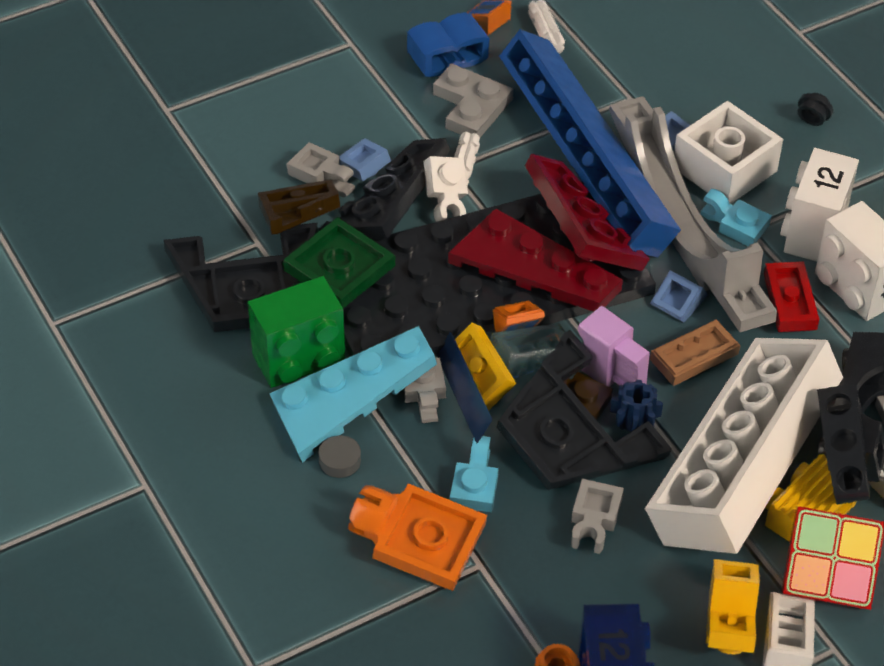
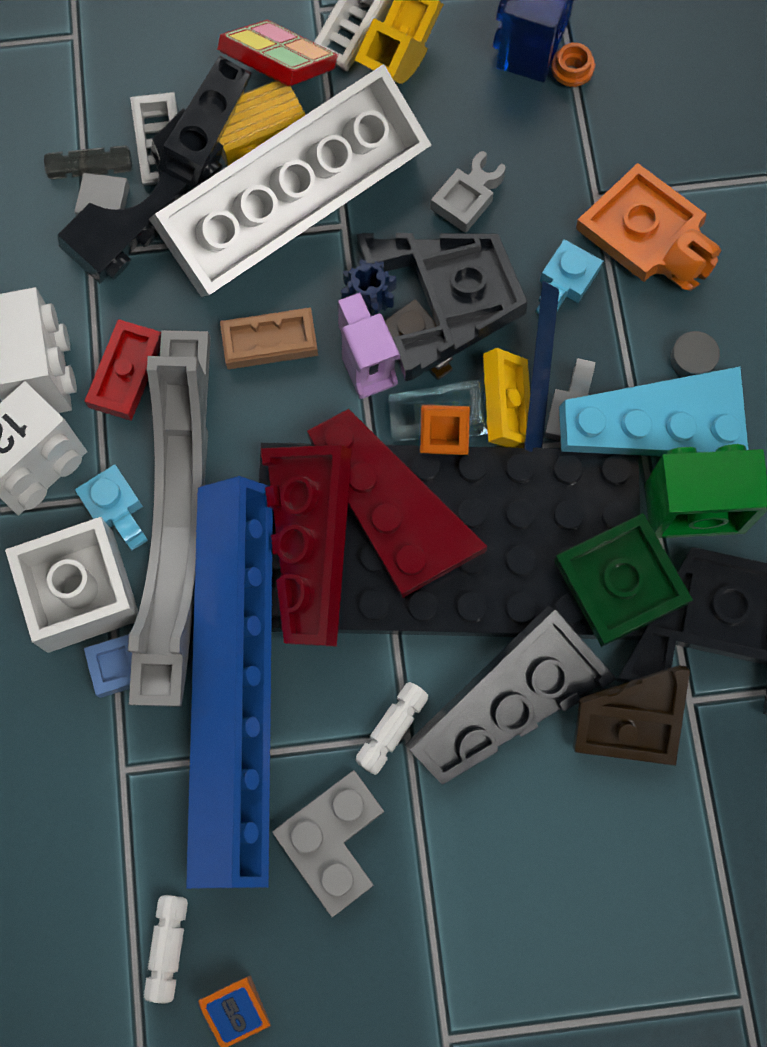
camera: 155 degrees left, 25 degrees up
(318, 164) = (585, 785): light grey plate -> none
(365, 159) = (520, 772): medium blue plate -> none
(447, 183) = (439, 676): white plate -> none
(452, 40) = (321, 957): blue brick -> none
(678, 296) = (240, 425): medium blue slope -> none

